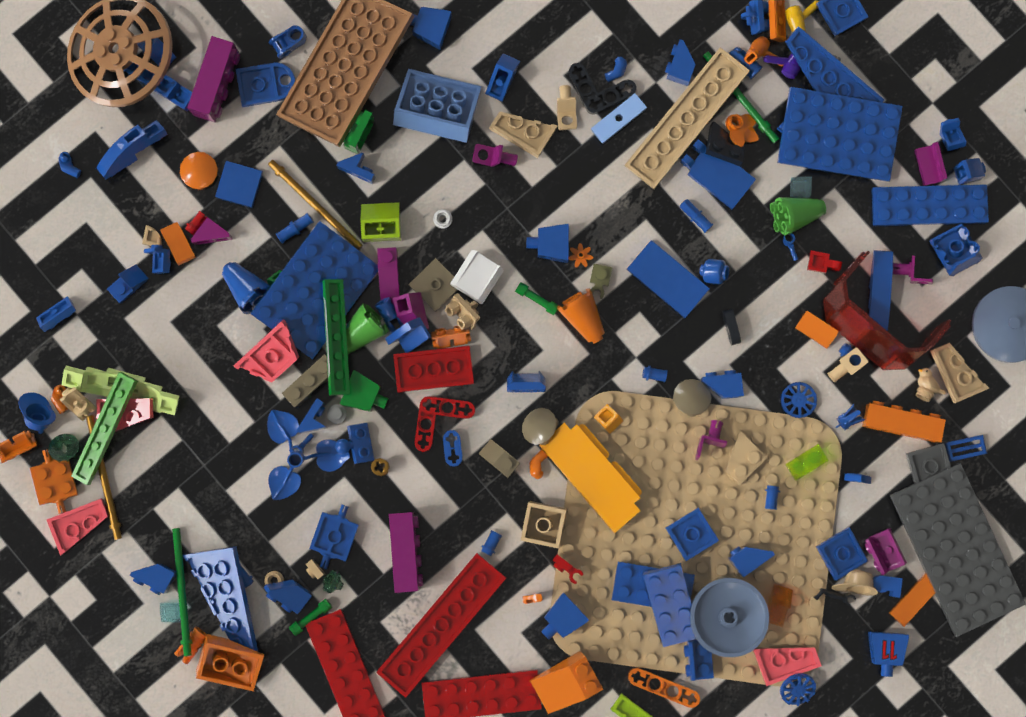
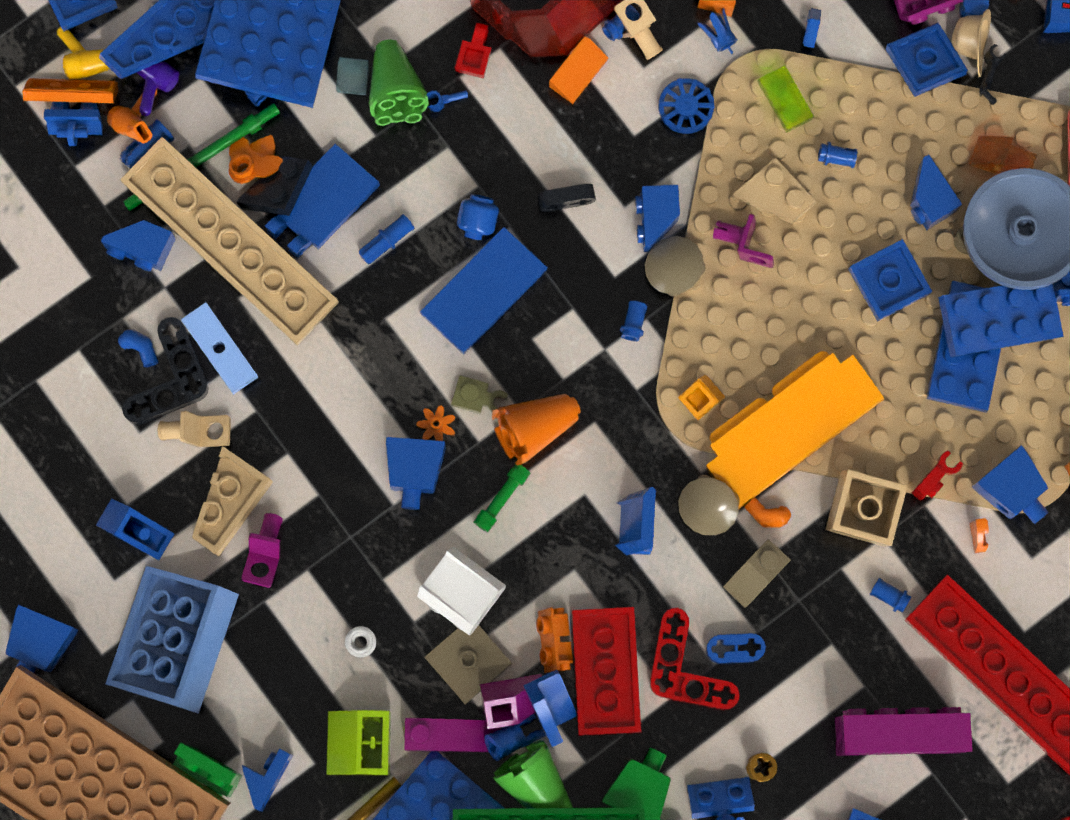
camera: 90 degrees left, 5 degrees down
(464, 310) = (515, 614): tan hips -> none

